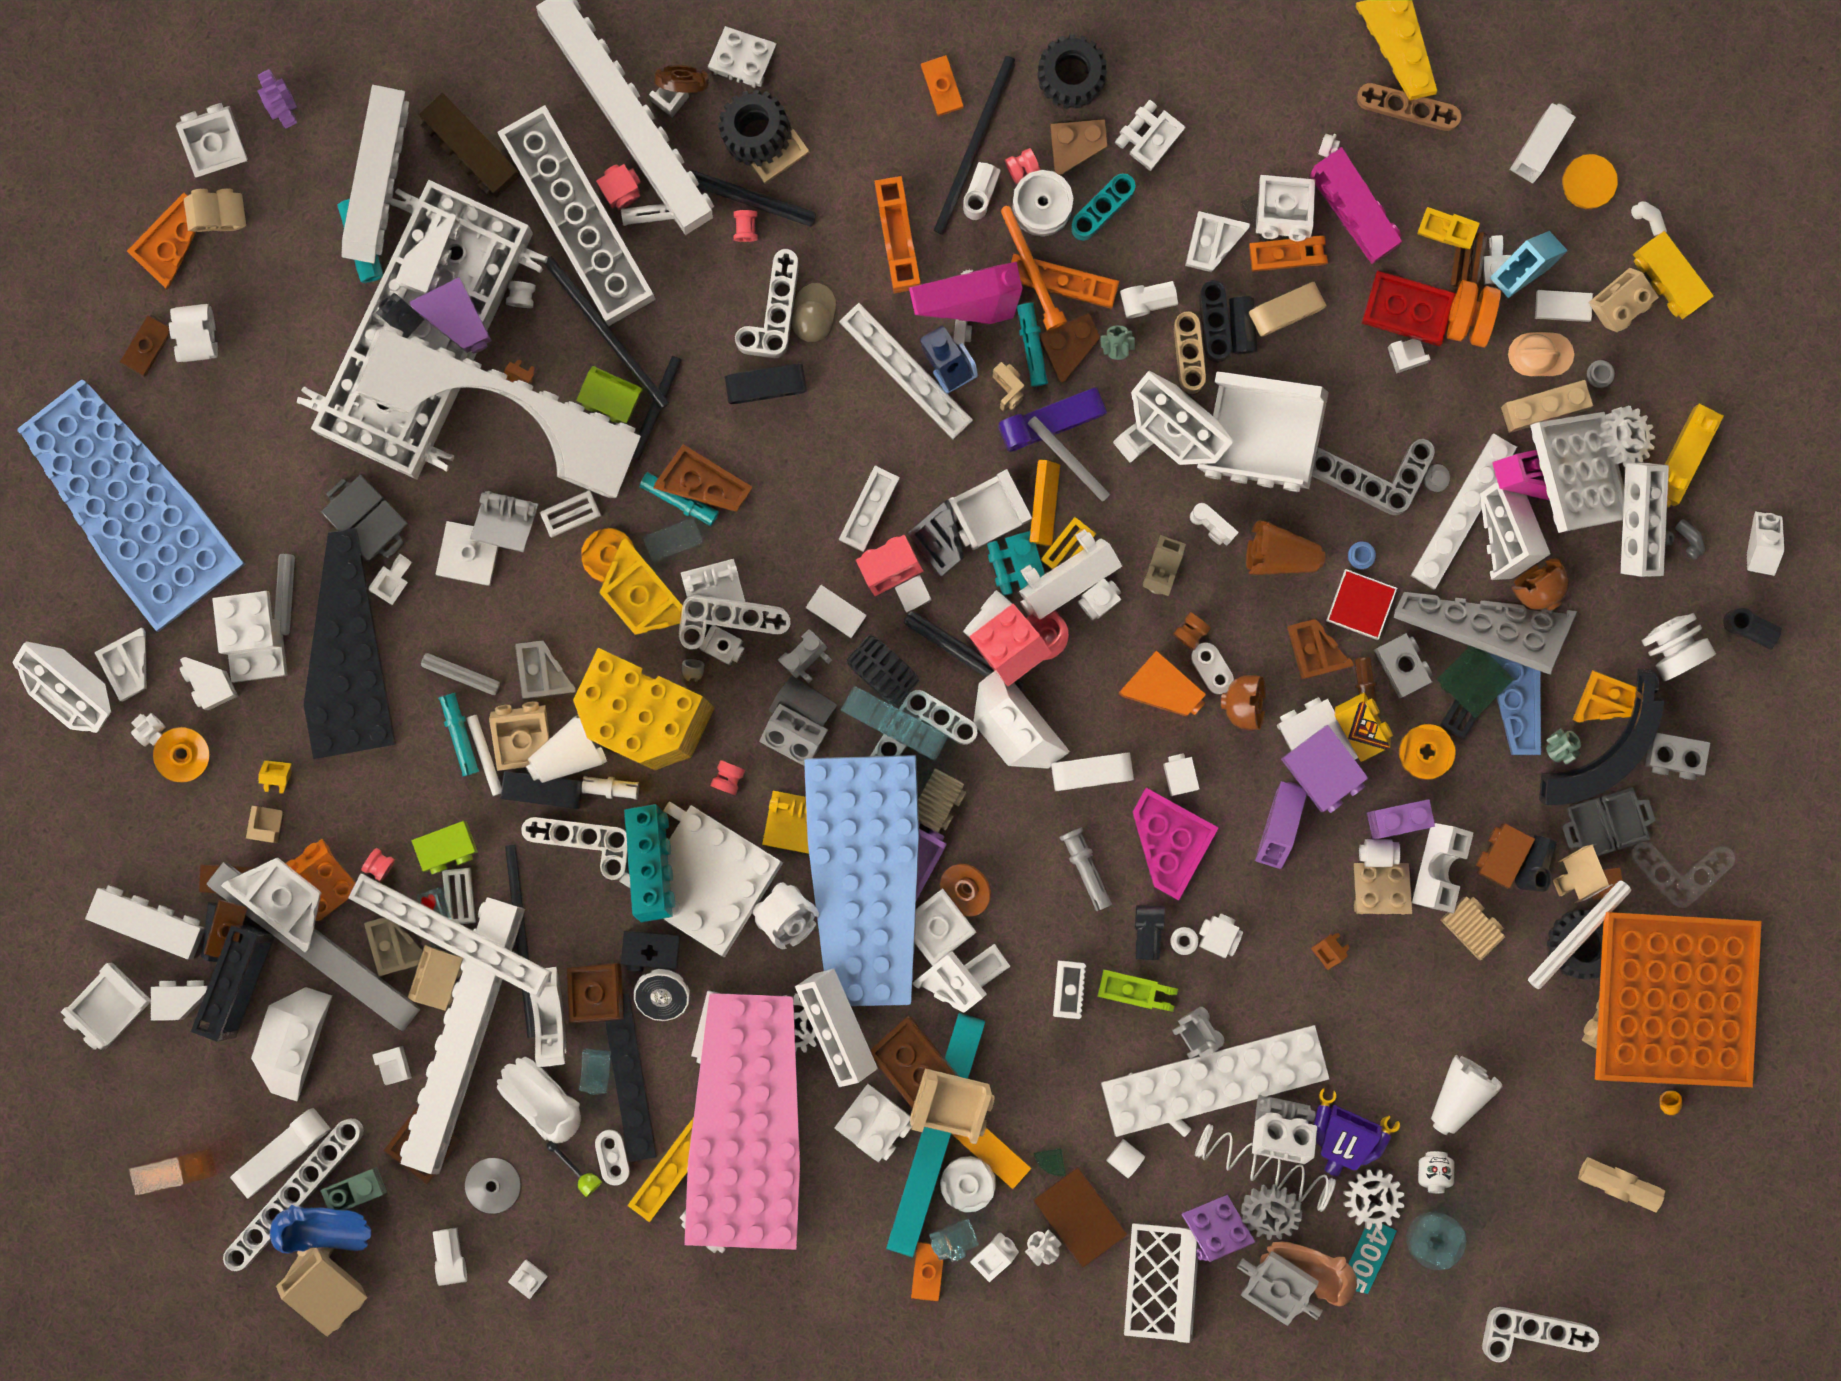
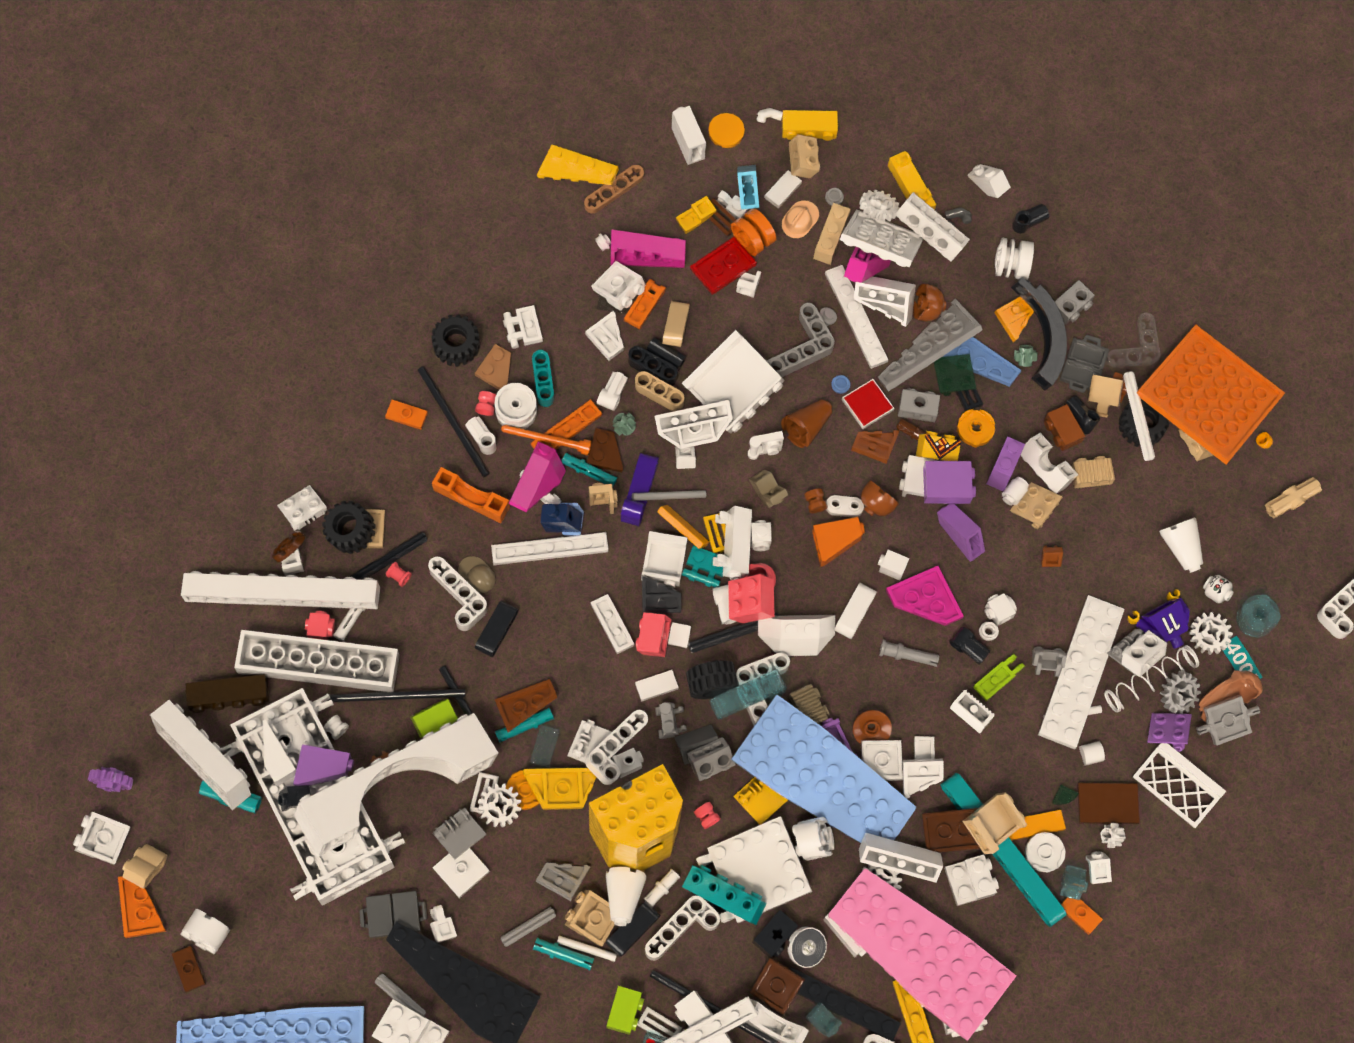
camera: 60 degrees left, 15 degrees down
(575, 550) = (500, 814): none -> white gear

